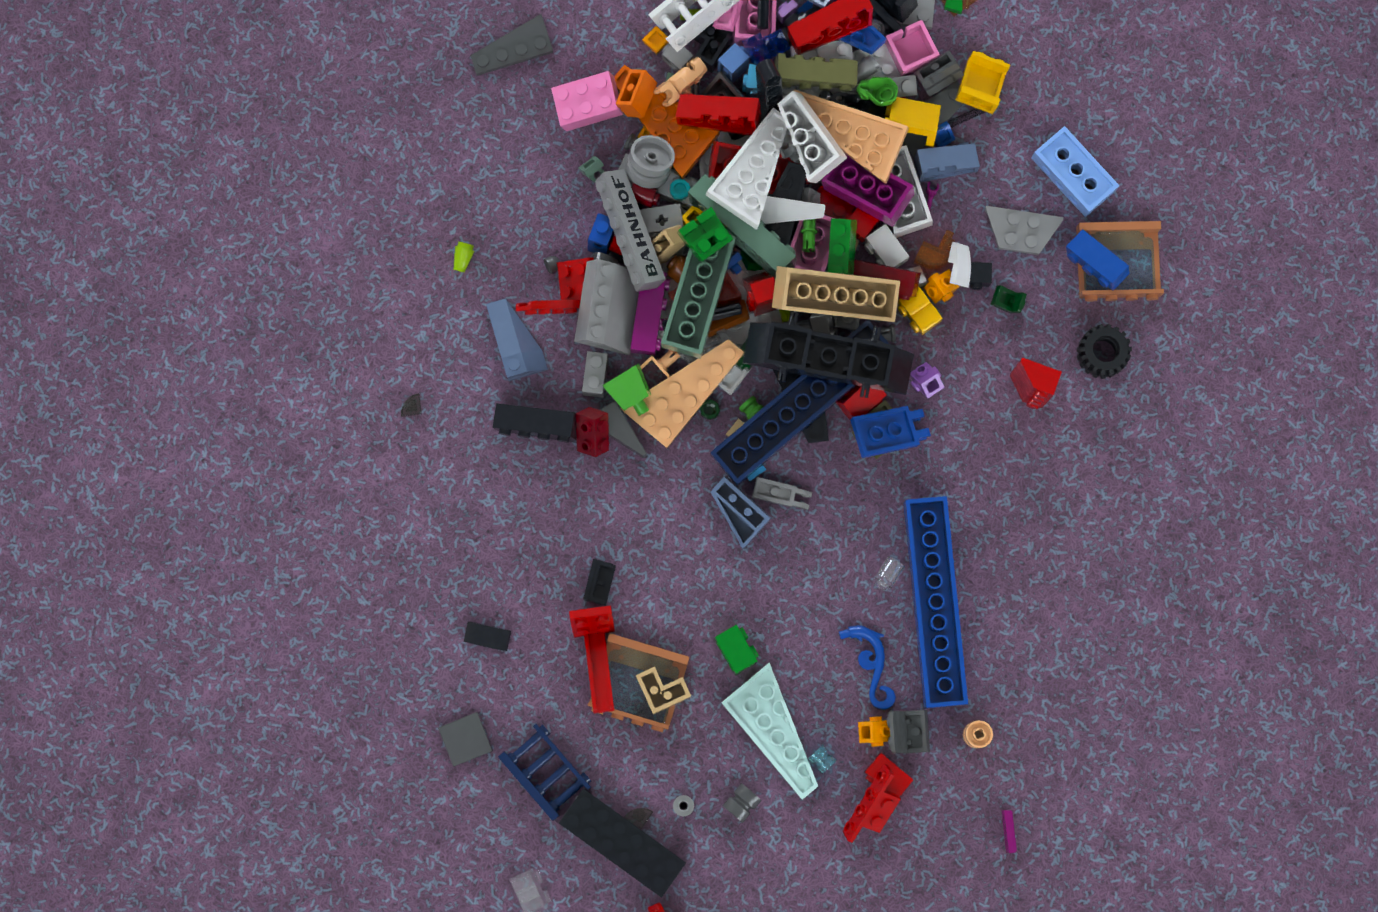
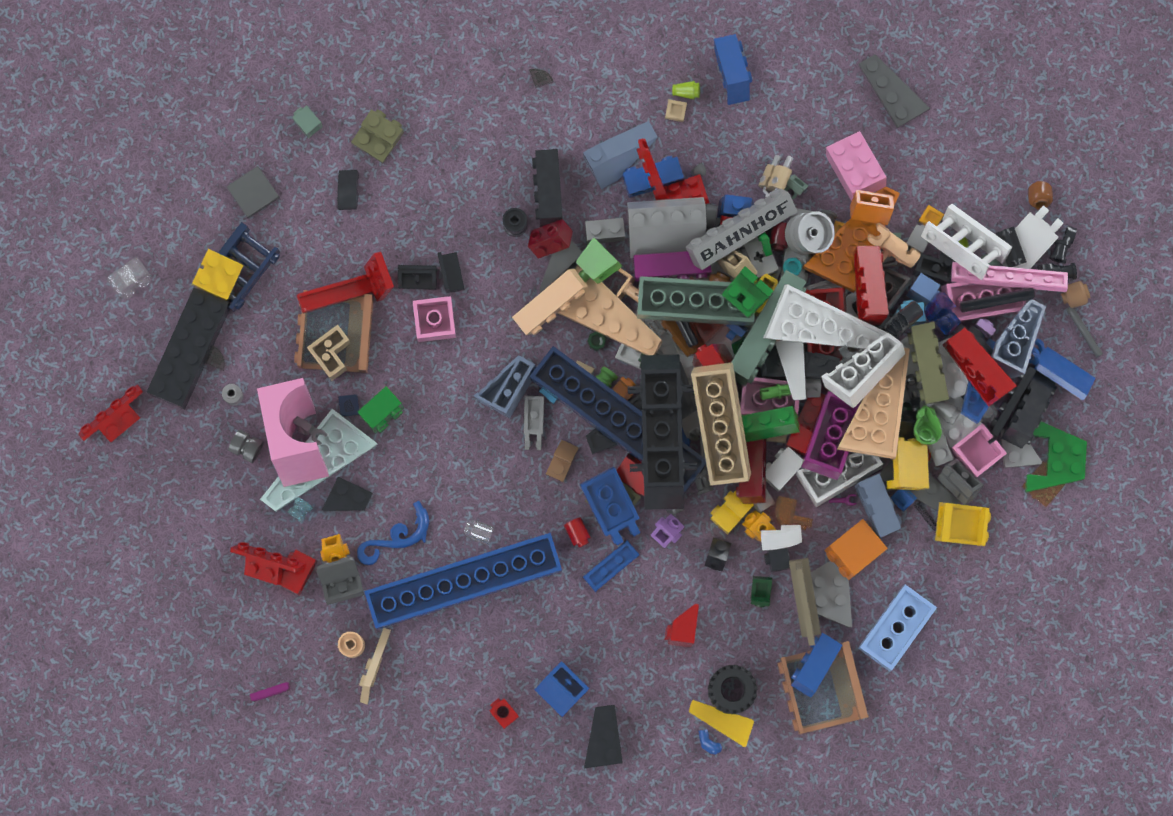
camera: 75 degrees right, 0 degrees up
(401, 664) = (307, 121): none -> sand green brick
(435, 591) = (378, 135): none -> olive plate
(451, 202) = (733, 68): none -> blue wedge
(481, 273) = (676, 110): none -> tan tile
(549, 326) = (637, 180): none -> blue brick
(553, 792) = (217, 275): none -> yellow piece
(564, 466) = (514, 222): none -> black wheel
(579, 185) = (775, 175): none -> tan piece
(601, 546) = (451, 272): none -> black panel
(650, 573) = (434, 319): none -> bright pink brick
(651, 208) = (765, 244): none -> green tile
(660, 447) = (550, 301): none -> light nougat brick
(721, 684) = (348, 405): none -> dark blue slope
(738, 734) = (306, 428): none -> dark grey plate
(766, 391) = (622, 387): none -> orange bracket
(773, 753) = (292, 459): none -> bright pink piece
(818, 707) = (347, 497): none -> black wing
(828, 473) = (562, 460): none -> medium nougat slope
(908, 473) = (577, 532): none -> red brick
(949, 447) = (611, 566): none -> blue tile
(960, 335) = (718, 554): none -> black bracket
(986, 194) = (855, 549): none -> orange brick
(1005, 716) = (367, 681): none -> tan wing
(1028, 256) = (805, 599): none -> dark tan fence
(1068, 524) = (561, 689): none -> blue slope
(1088, 587) = (511, 717): none -> red brick
(1129, 493) = (604, 739): none -> black wedge
(1141, 359) = (732, 725): none -> yellow sticker
(1153, 390) = (707, 744): none -> blue arm

